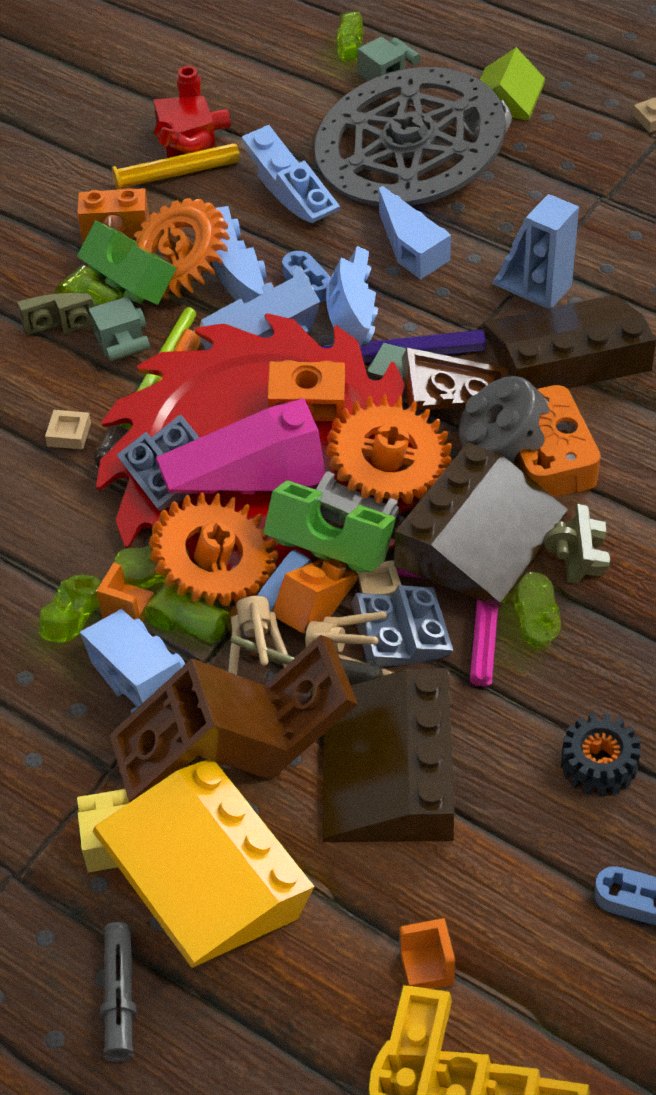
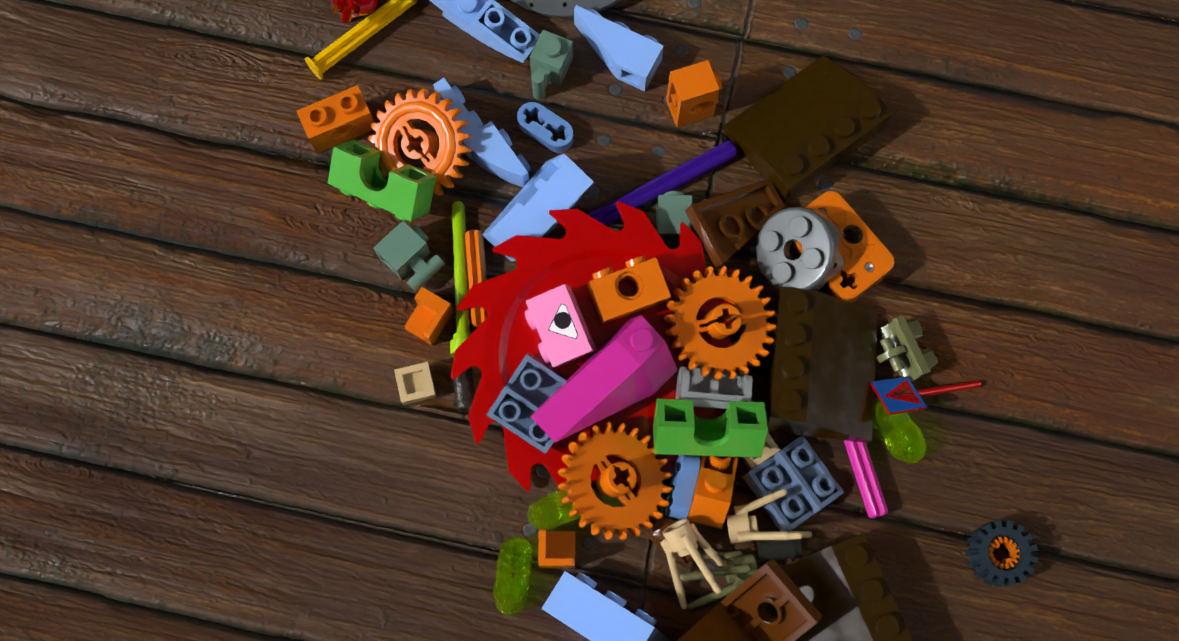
camera: 25 degrees left, 25 degrees up
(63, 310) = (352, 248): olive slope -> none
(86, 281) = (351, 217): clear neon green piece -> none
(118, 383) = (429, 316): none -> orange panel
(198, 619) = (599, 548): clear neon green piece -> none
(223, 392) = (559, 326): none -> bright pink brick
(336, 225) = (549, 62): none -> sand green brick
(350, 300) = (607, 159): light blue slope -> none
(459, 276) = (693, 93): none -> orange brick
(542, 254) = (755, 45): light blue wedge -> none
(562, 577) = (900, 395): none -> piece

